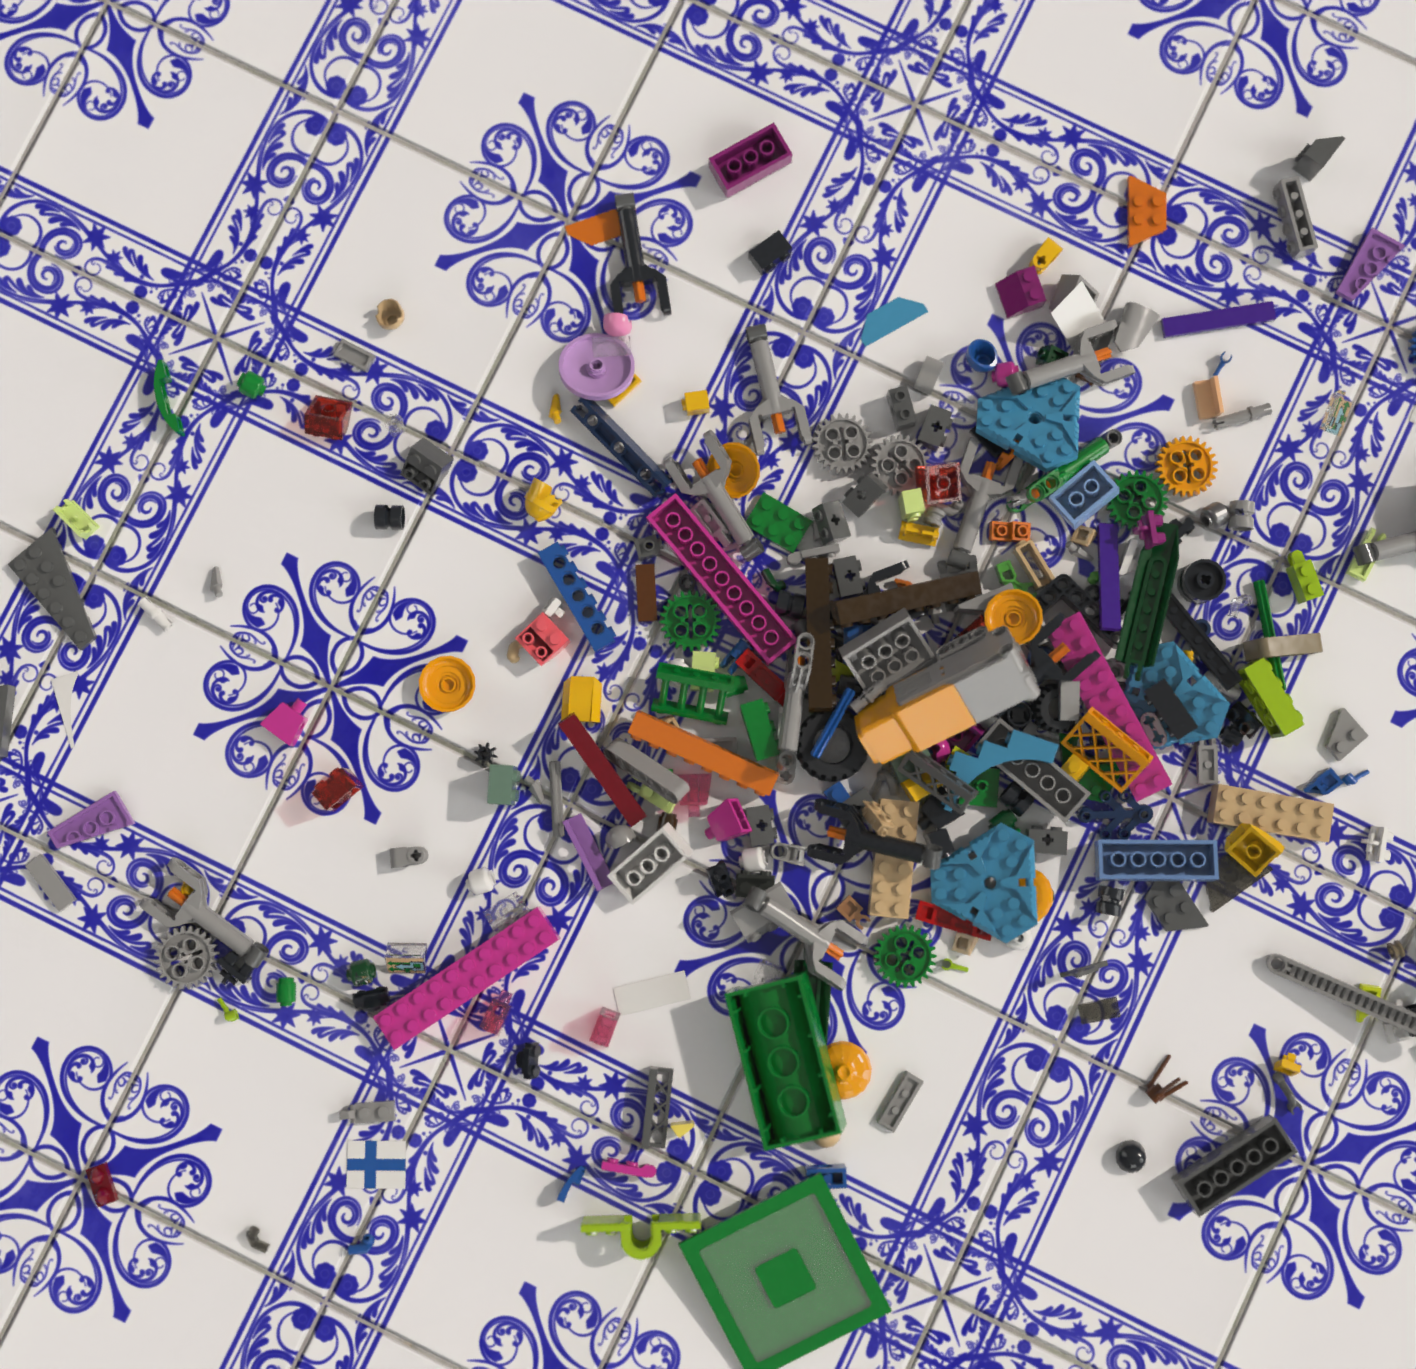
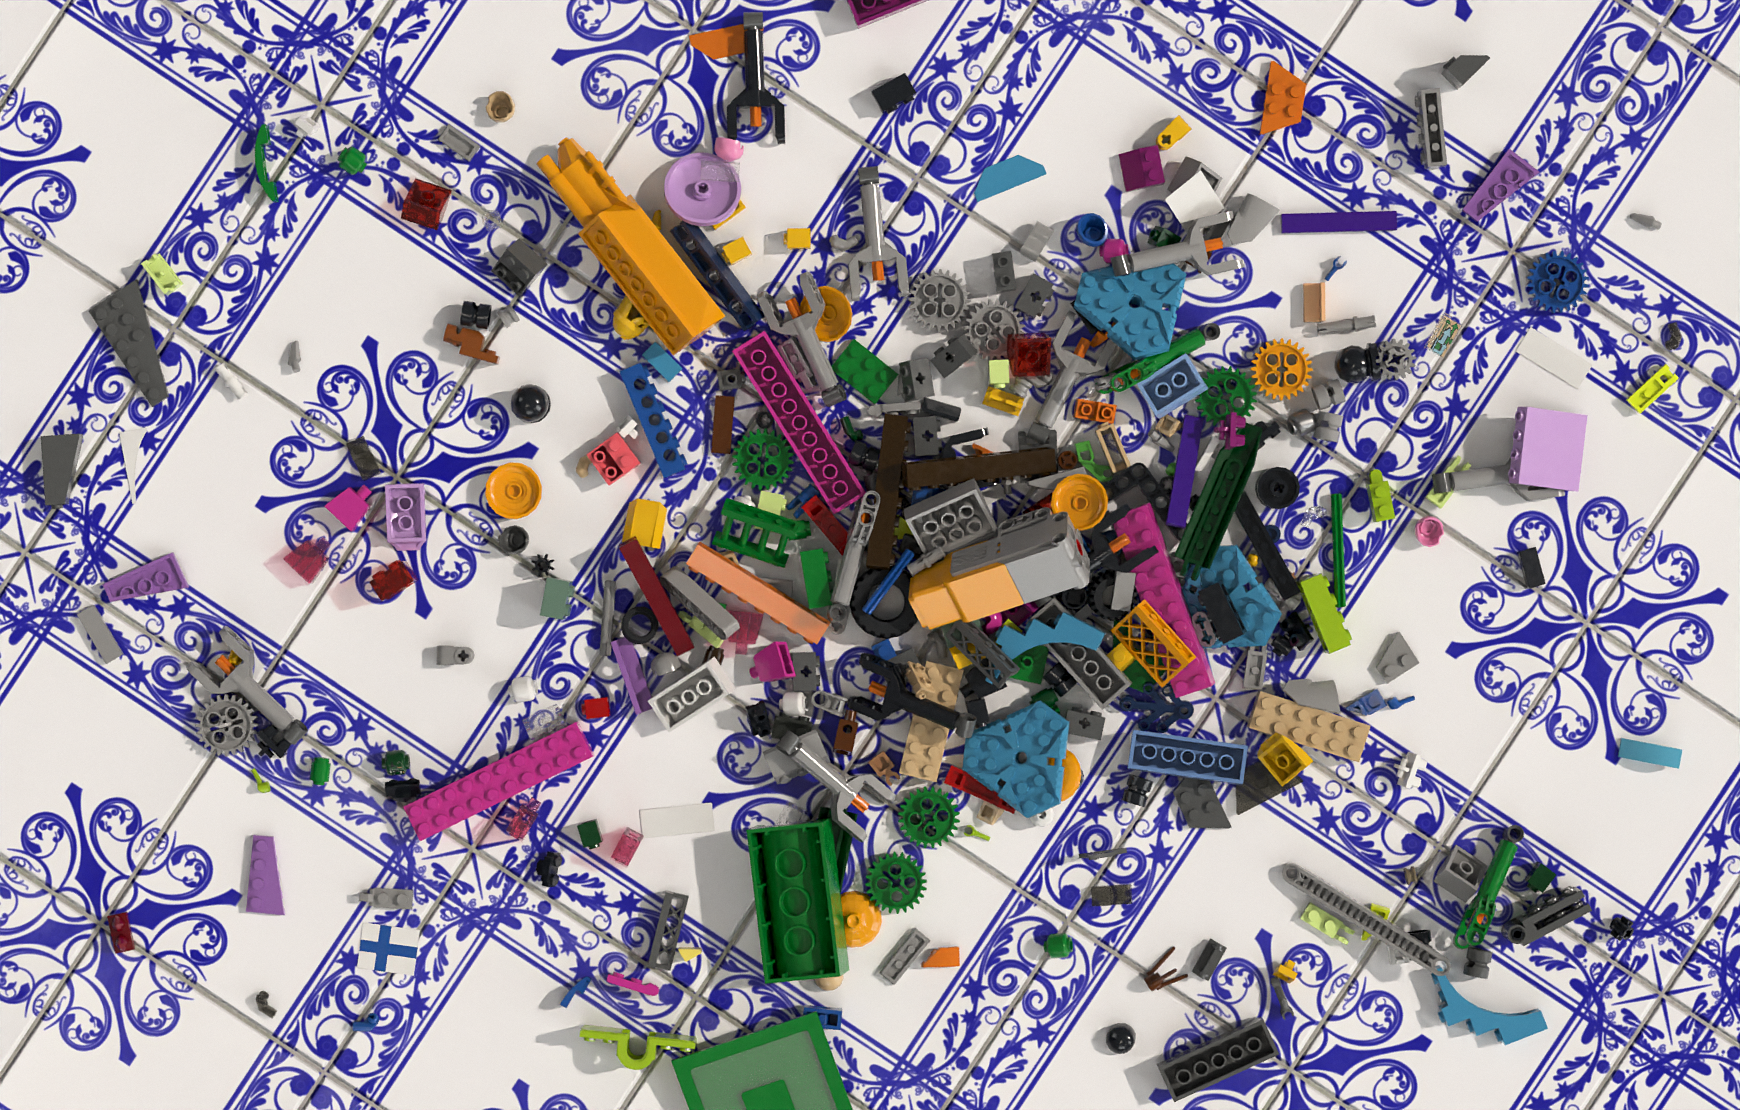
camera: 10 degrees right, 5 degrees up
(203, 358) = (306, 125): none -> white tile
(242, 1113) = (264, 882): none -> medium lavender wing
(251, 779) = (309, 559): none -> clear pink torso
(295, 672) = (363, 458): none -> clear smoke slope
(343, 723) = (405, 515): none -> lavender slope
(388, 546) = (470, 342): none -> dark orange plate
(406, 957) = (441, 754): panel -> none
(421, 514) = (508, 316): none -> light grey wheel
(453, 596) = (530, 403): none -> black tile
(453, 733) = (514, 539): none -> dark grey hair
(535, 788) = (587, 605): light grey bar -> none
(536, 430) = (631, 248): none -> light orange piece
(556, 890) = (596, 707): none -> red brick
(566, 1019) = (590, 834): none -> dark green brick
(578, 539) = (662, 361): none -> dark azure tile
(589, 786) = (625, 625): none -> black tyre
(637, 422) = (736, 251): none -> yellow brick
(739, 403) = (841, 244): none -> light grey arm
(810, 891) = (845, 741): none -> reddish brown torso
(860, 550) = (941, 409): none -> black slope
(871, 1041) = (908, 869): none -> green gear
(939, 1097) = (943, 957): none -> orange slope
(992, 579) = (1067, 460): none -> reddish brown wheel
(1054, 1069) = (1058, 945): none -> green head
(1207, 1063) = (1209, 959): none -> dark grey hinge
(1235, 484) = (1322, 397): none -> light grey wheel
(1261, 449) = (1356, 364): none -> black tile
(1272, 780) = (1316, 695): none -> light grey panel
(1282, 646) = (1349, 563): dark tan beam -> none
(1290, 435) = (1398, 367): none -> light grey gear
(1317, 1009) = (1325, 922): none -> yellowish green hinge
(1357, 604) = (1429, 531): none -> bright pink hair

